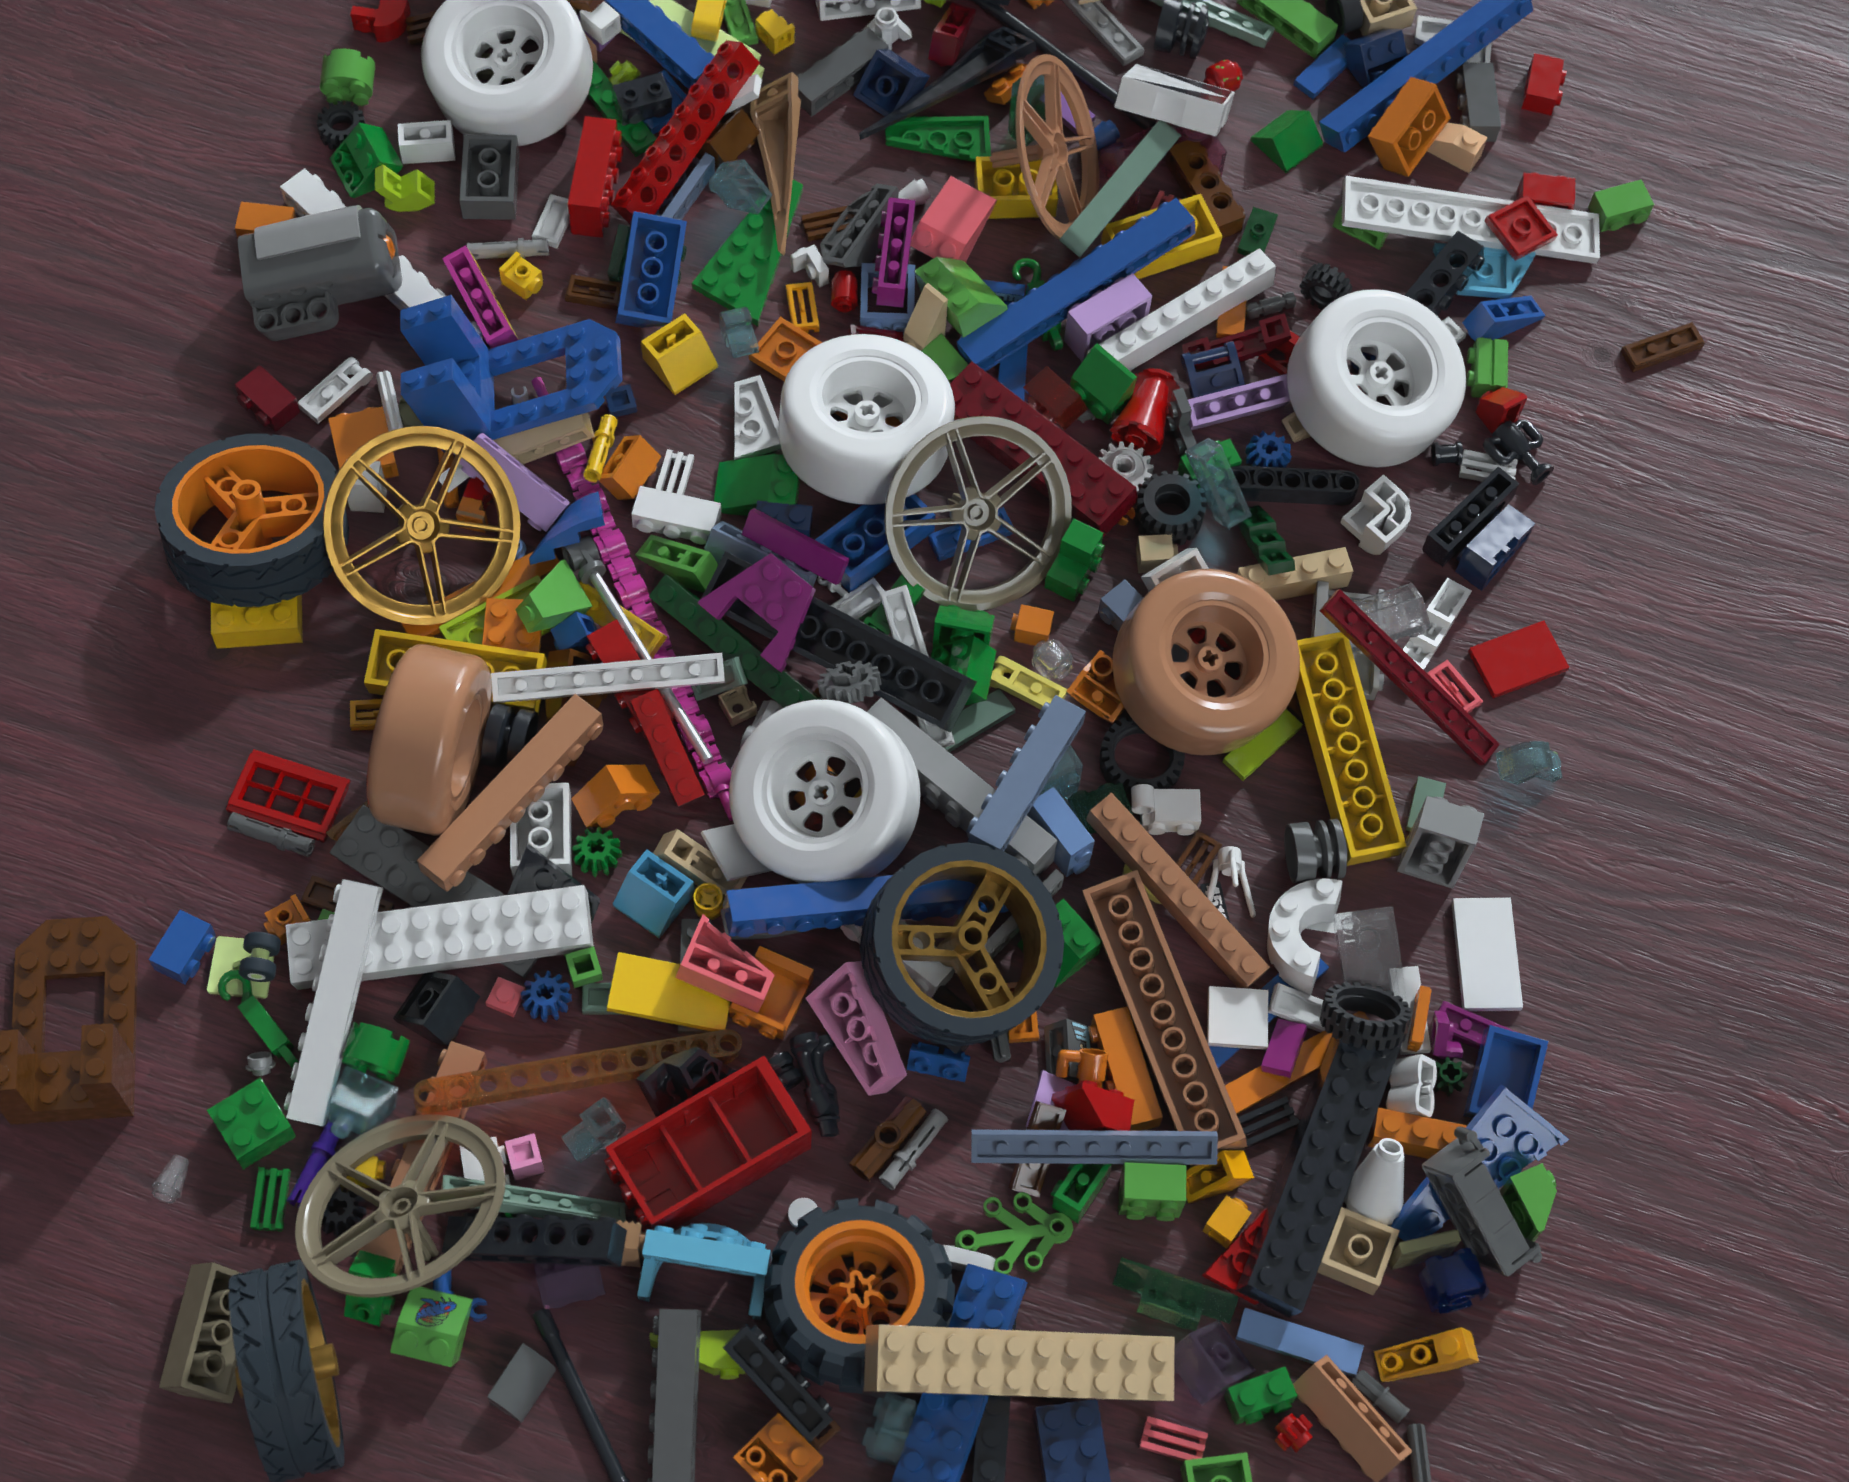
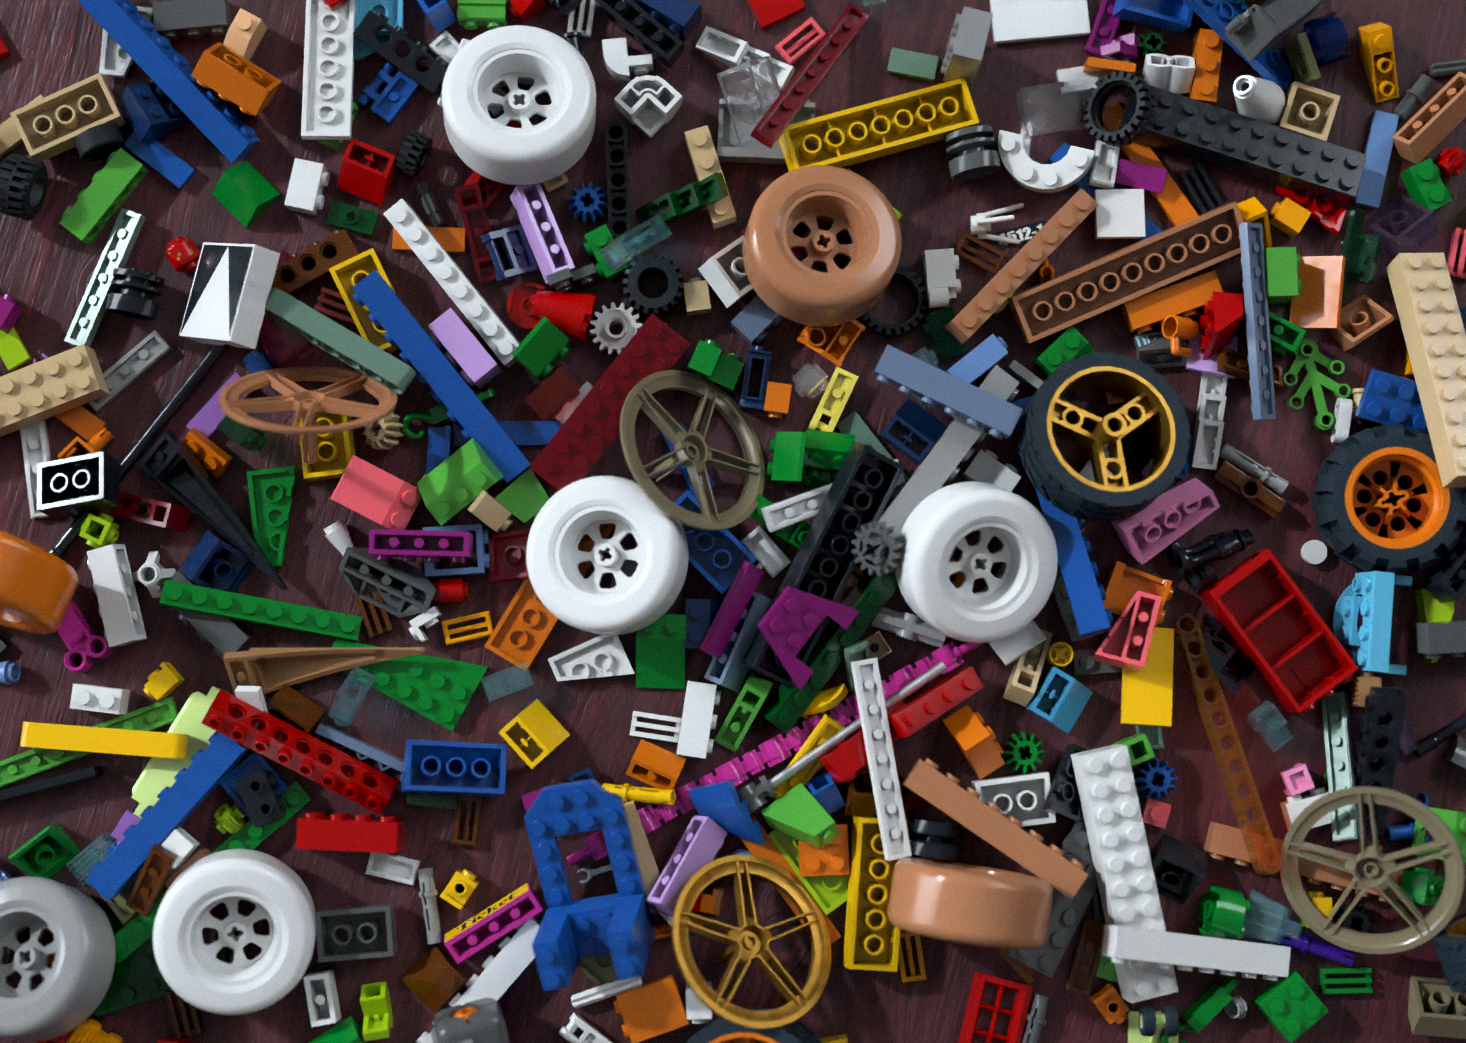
camera: 90 degrees left, 20 degrees up
(427, 248) = (434, 977): none -> reddish brown slope
(681, 638) = (826, 700): none -> yellow arm
(838, 116) = (260, 611): none -> green plate
(929, 834) = (989, 470): none -> white brick
(974, 1102) = (1209, 421): none -> white slope
(986, 752) = (912, 431): none -> dark blue slope
(1024, 238) = (384, 432): none -> tan gear
(1062, 615) = (760, 353): none -> dark blue window
(1089, 1293) = (1359, 321): none -> nougat slope
(1129, 1243) = (1321, 293): none -> orange tile
(1172, 930) = (1046, 270): none -> orange hand
(1292, 190) = (306, 187): none -> white brick
(1307, 243) = (366, 172): none -> red slope
(1388, 277) = (393, 98): none -> blue plate
(1430, 497) = (620, 64): none -> white brick

